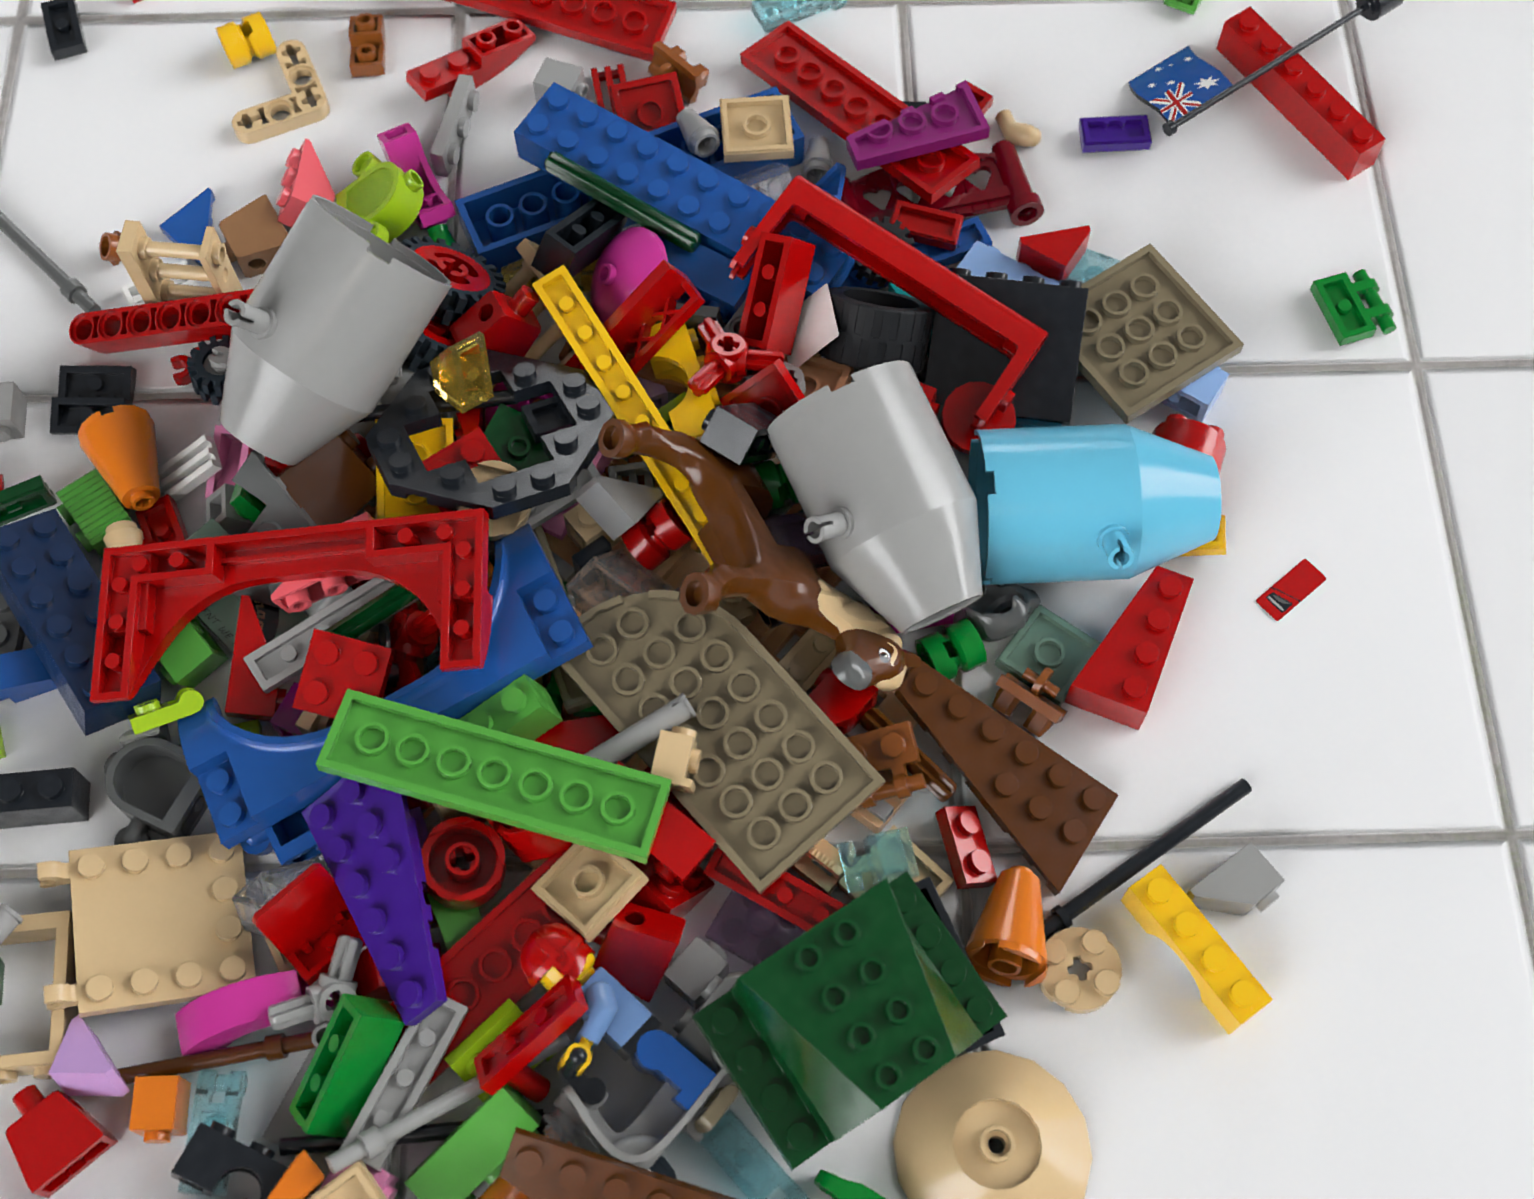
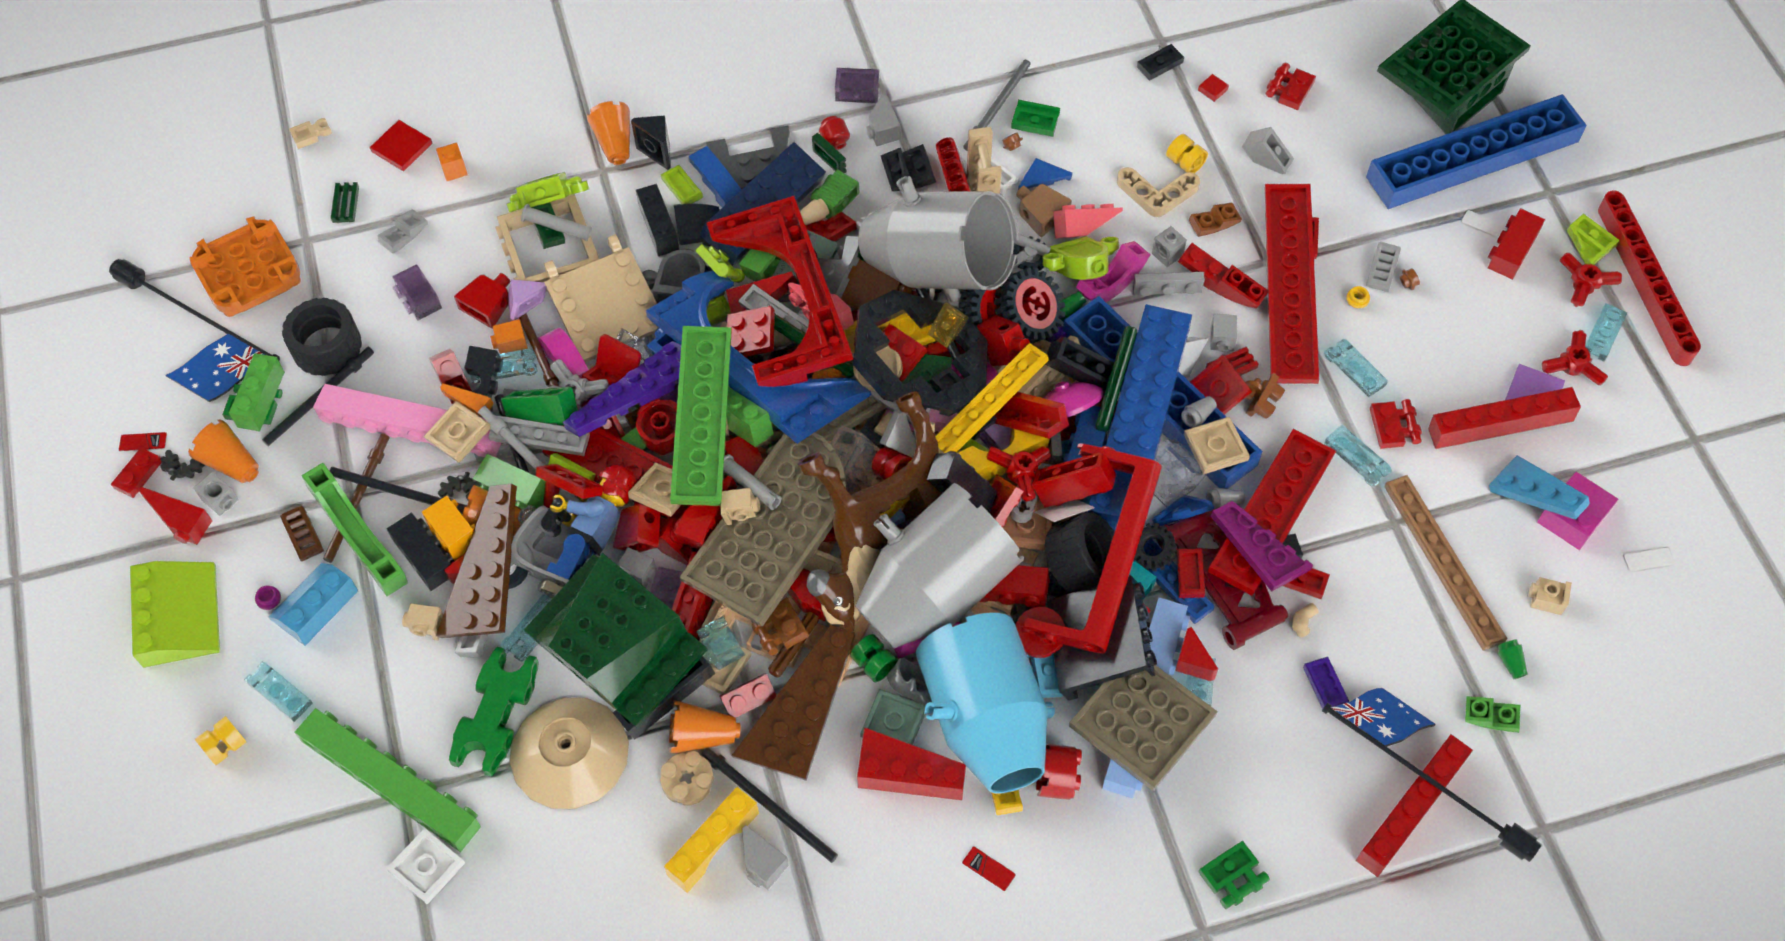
camera: 75 degrees right, 5 degrees down
(51, 740) = (690, 221): none -> black slope
(85, 206) = (1035, 118): none -> green plate
(124, 453) = (869, 193): orange cone -> none
(393, 103) = (1168, 246): none -> light grey brick
(1044, 710) = (856, 712): dark orange hips -> none

